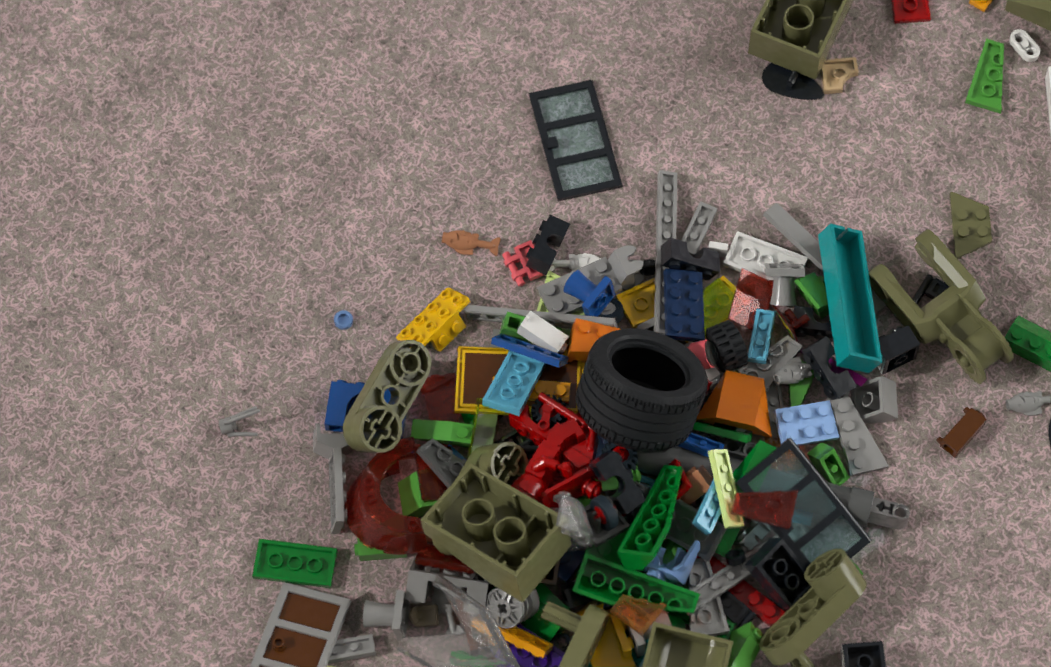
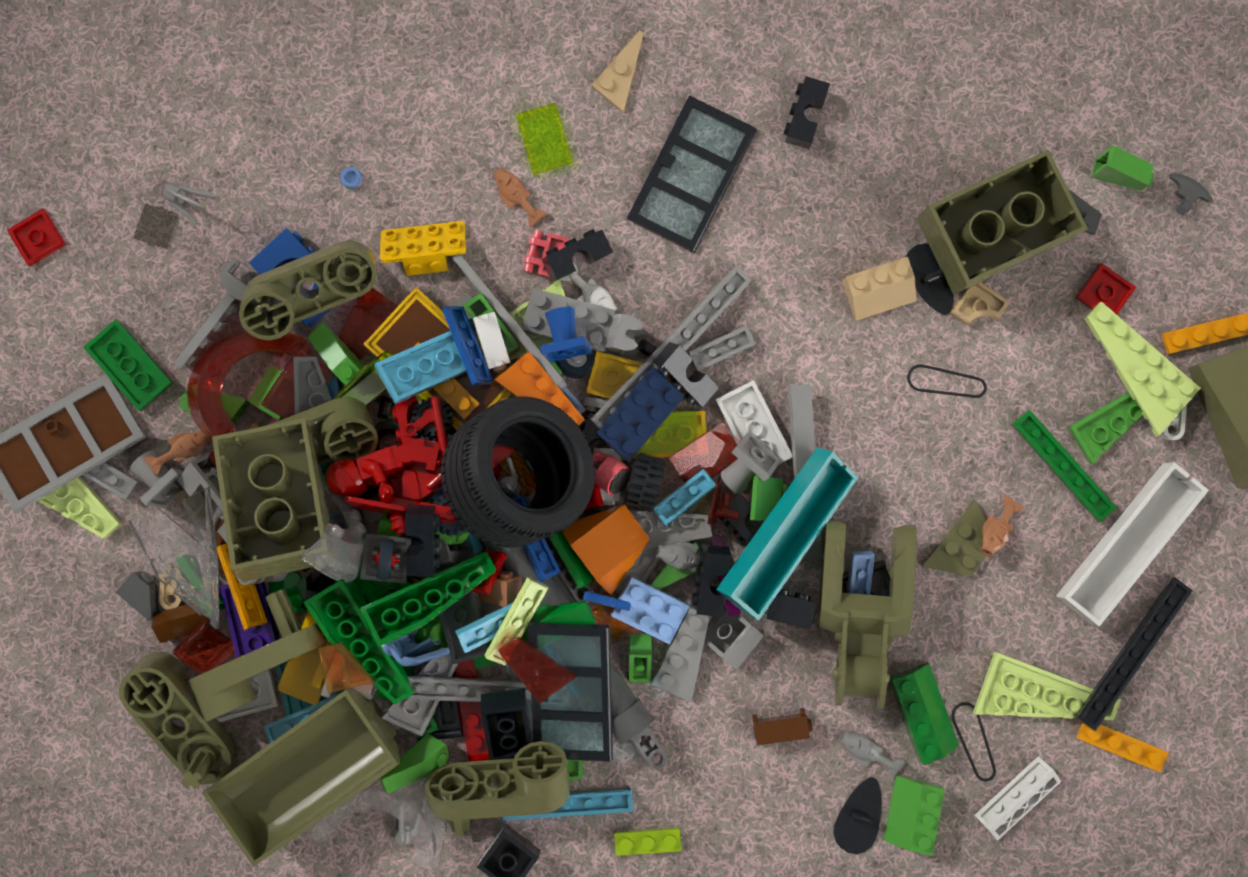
camera: 45 degrees right, 20 degrees up
(149, 533) = (36, 237): none -> red tile
(230, 458) = (156, 226): none -> clear smoke piece
(386, 581) = (183, 447): none -> nougat animal
(455, 194) = (544, 138): none -> clear neon green tile
(470, 119) = (617, 77): none -> tan wing
(621, 58) = (811, 95): none -> black arch
(722, 248) = (722, 382): white tile -> none
(735, 557) = (482, 678): black tile -> none
(765, 112) = (880, 288): none -> tan slope
(776, 433) = (605, 600): none -> blue tile
(842, 156) = (943, 392): none -> black piece
(868, 603) = (589, 803): none -> medium azure tile
(918, 288) = (860, 572): none -> medium blue plate
(946, 580) = (647, 841): none -> lime plate
(978, 30) = (1145, 372): none -> yellowish green wing
(981, 197) = (997, 530): none -> nougat animal
(985, 126) = (1064, 466): none -> green plate

